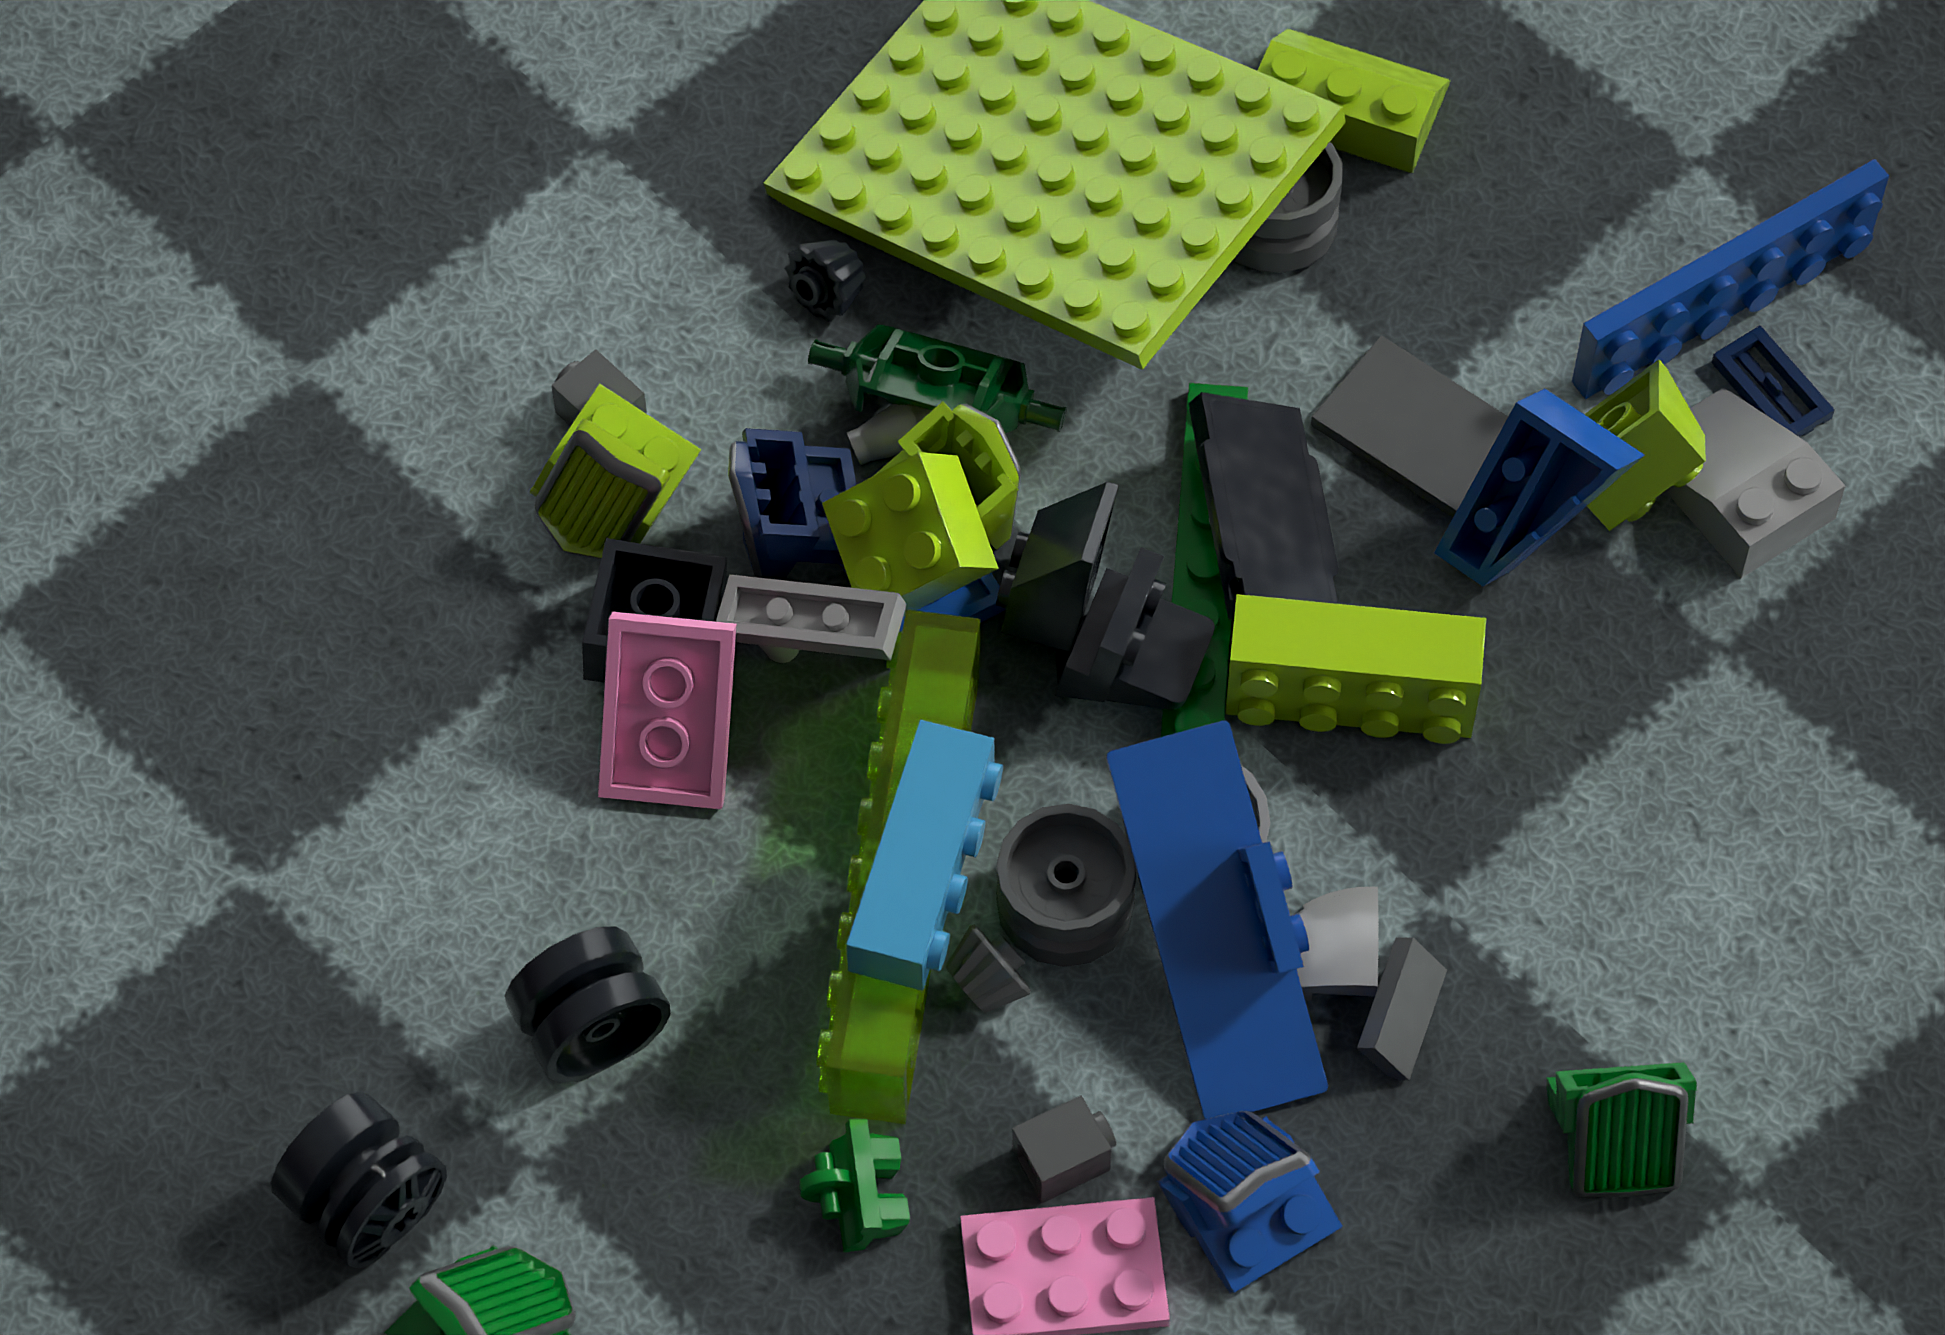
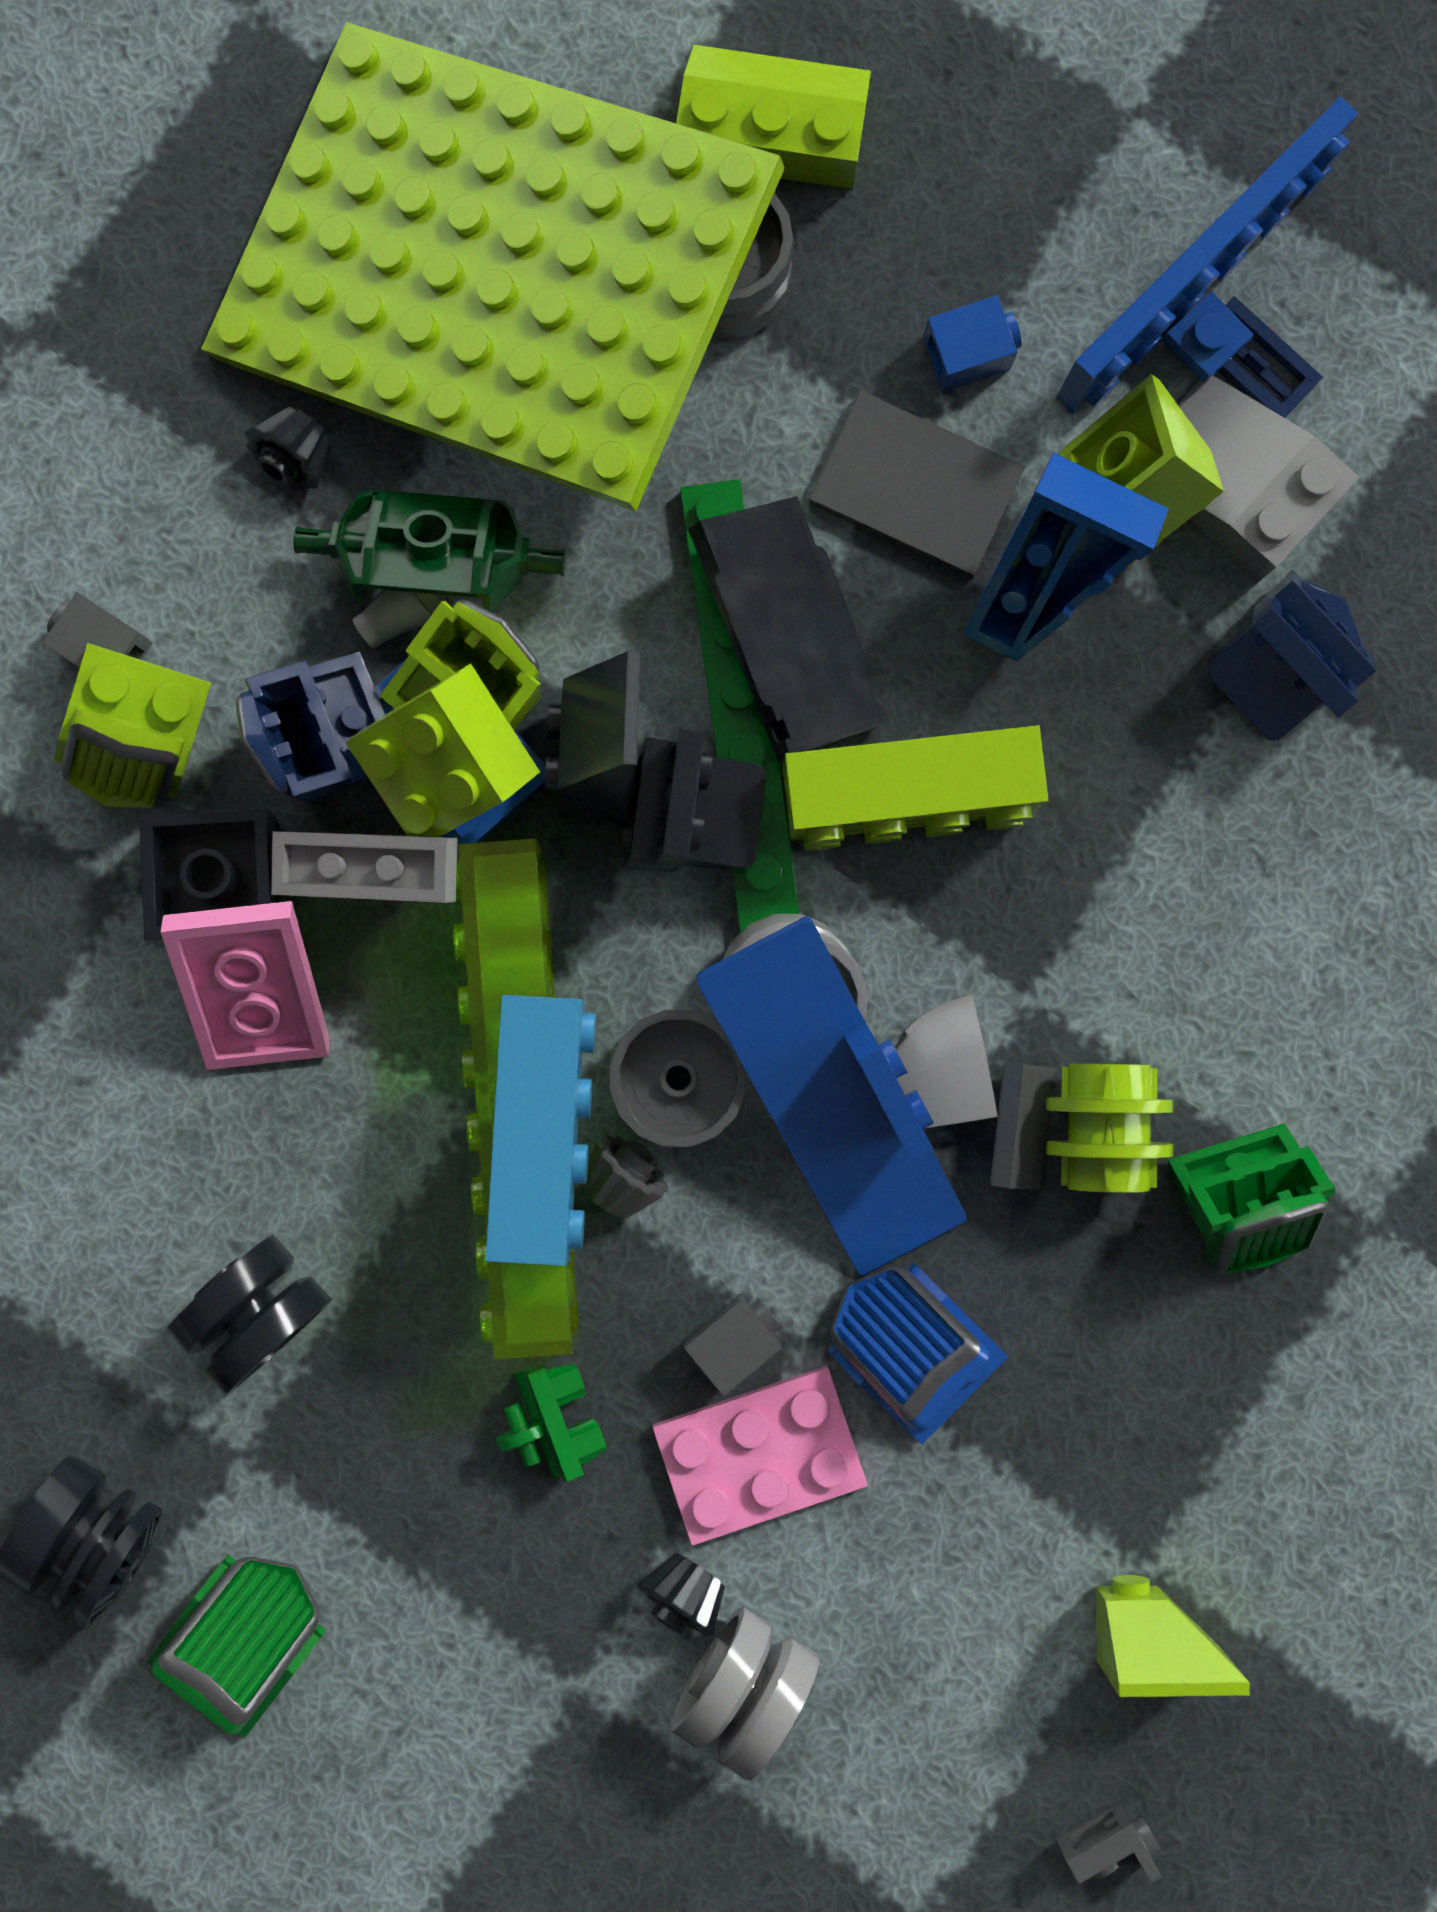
camera: 15 degrees left, 25 degrees up
(1487, 1013) = (1095, 1156): none -> lime piece
(1496, 314) = (972, 342): none -> blue brick
(1726, 351) = (1208, 337): none -> blue plate
(1755, 638) = (1293, 658): none -> dark blue piece

